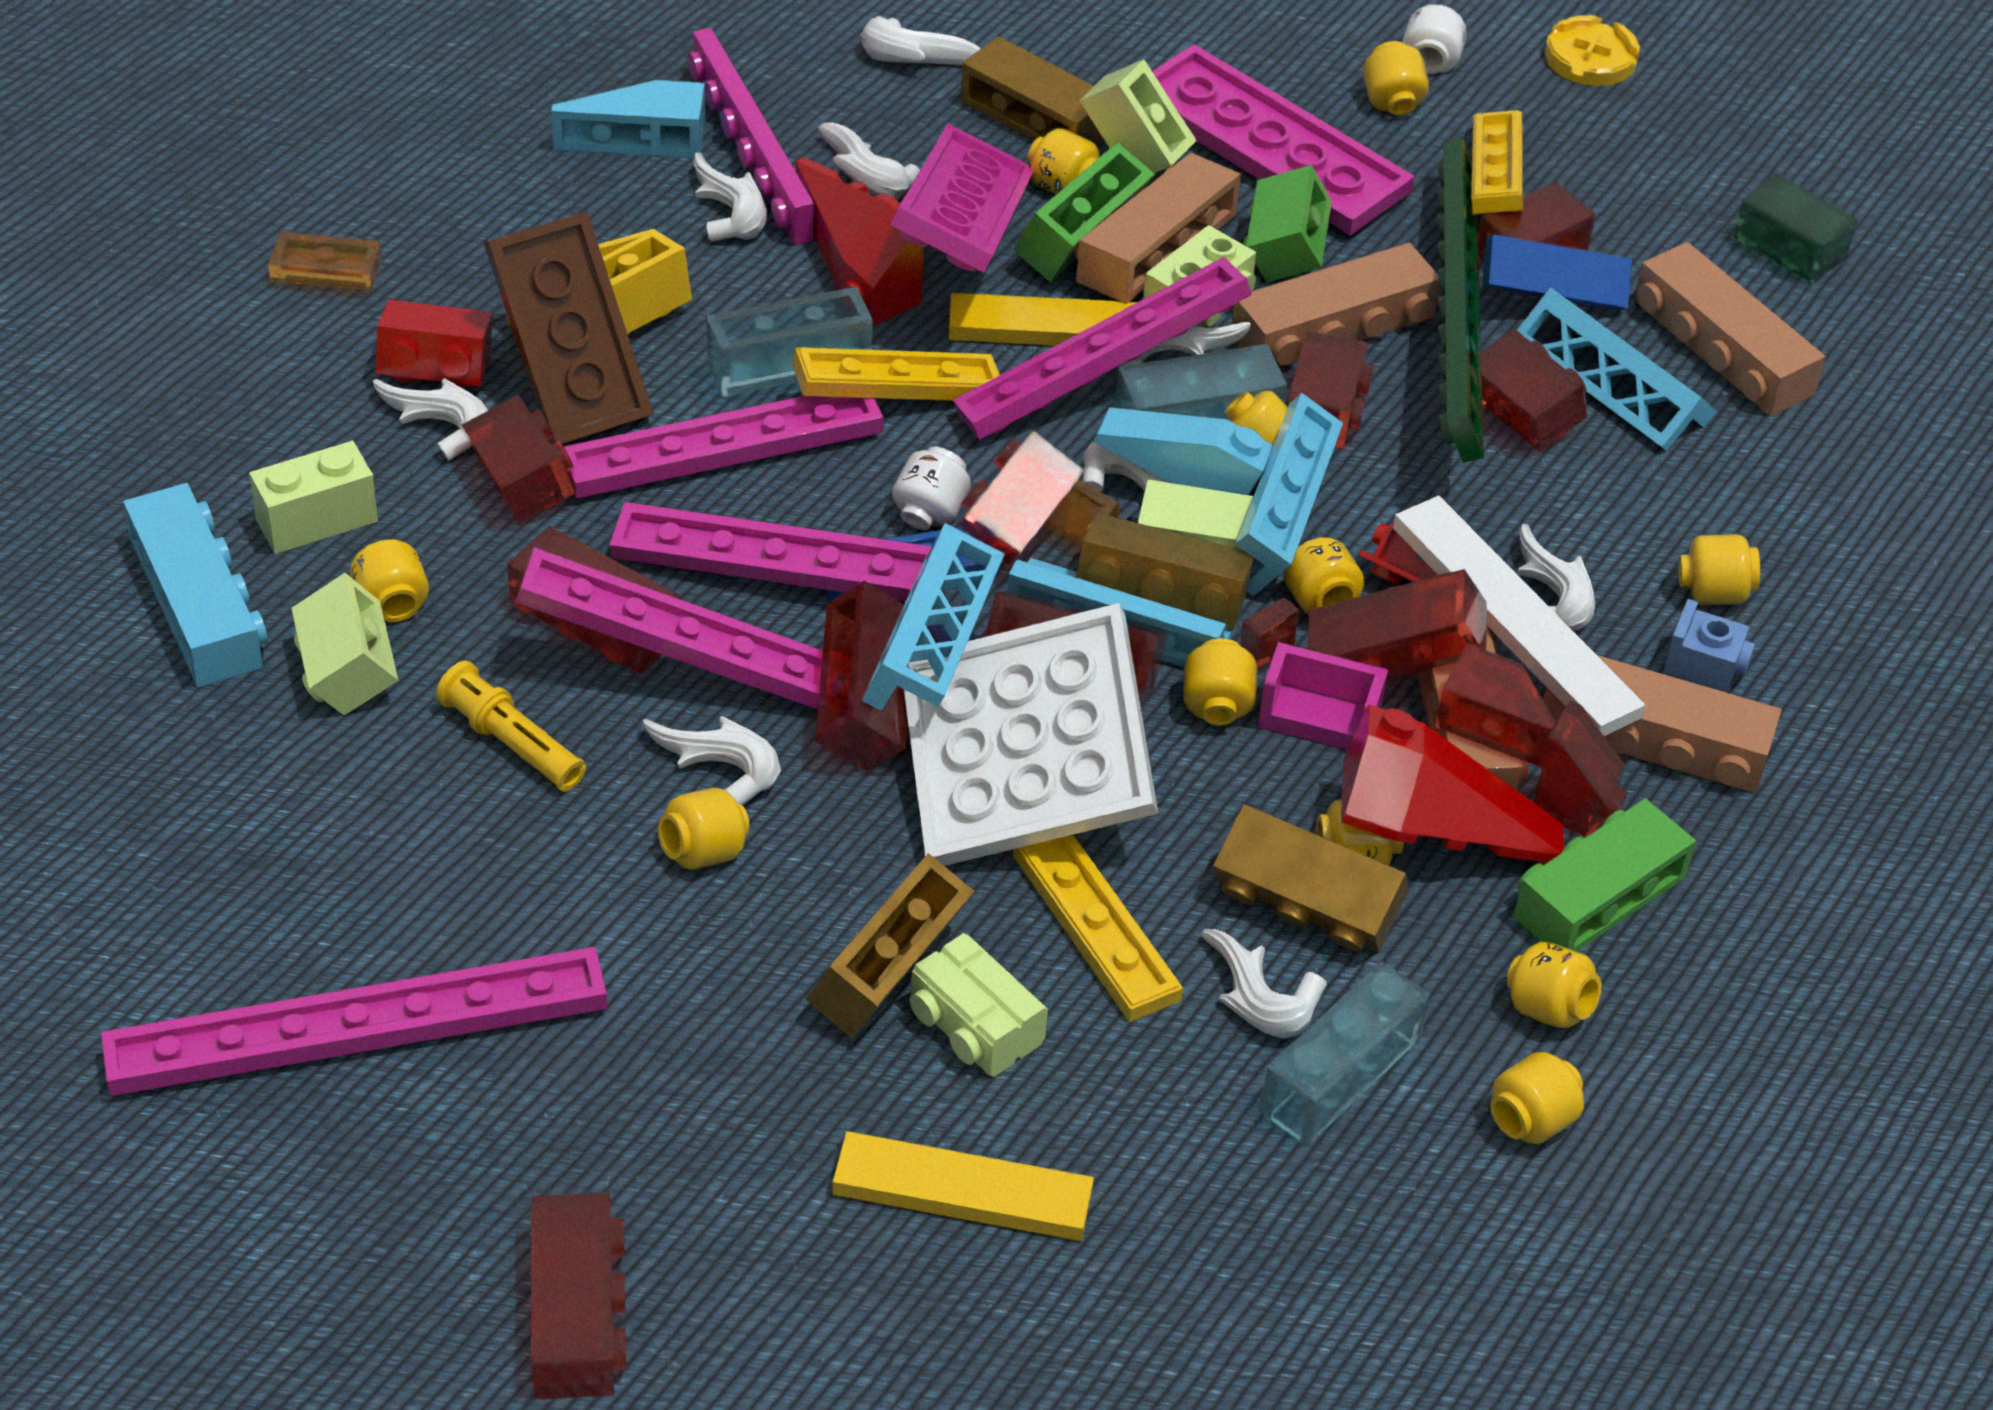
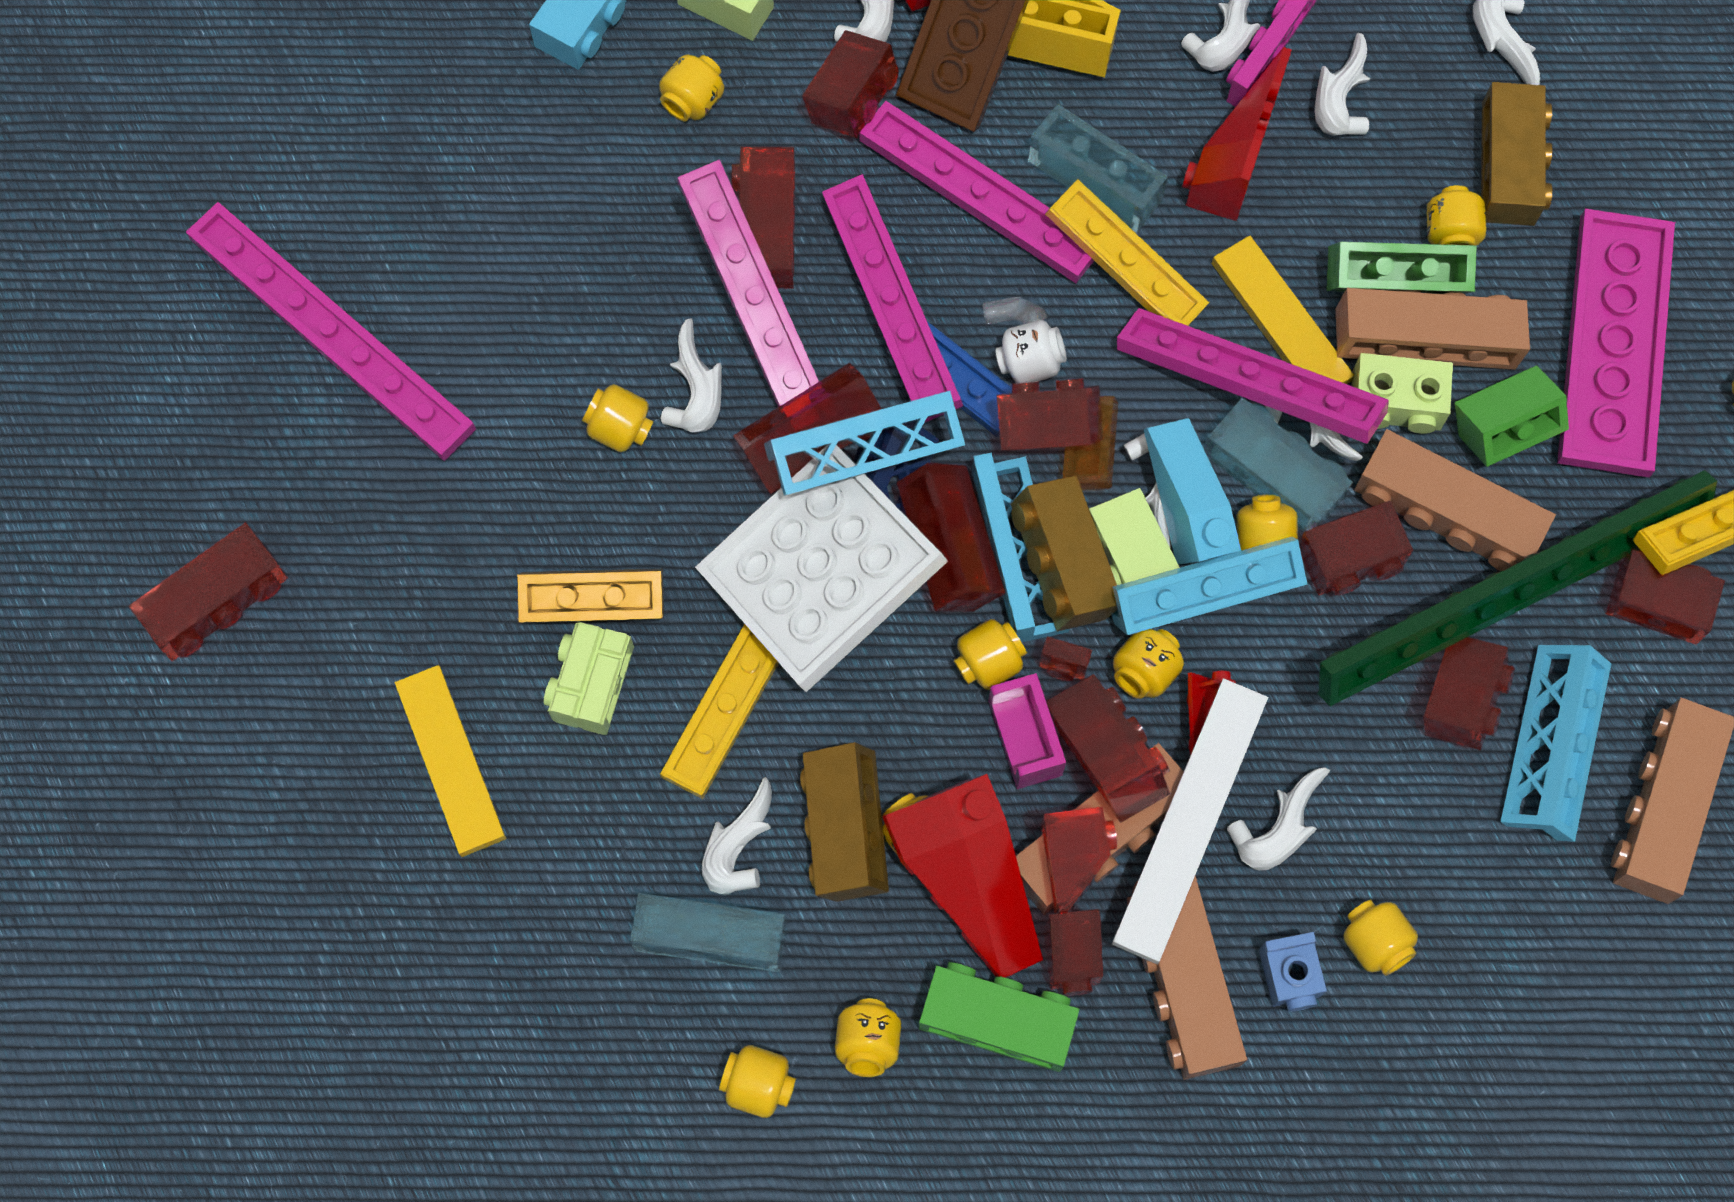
camera: 60 degrees right, 25 degrees up
(343, 645) = (607, 104): yellowish green brick -> none
(493, 712) = (627, 228): yellow pin -> none
(868, 485) = (1012, 309): none -> clear arm
(962, 199) = (1315, 184): dark pink plate -> none
(1139, 115) = (1526, 242): yellowish green brick -> none
(1574, 273) = (1621, 640): blue tile -> none

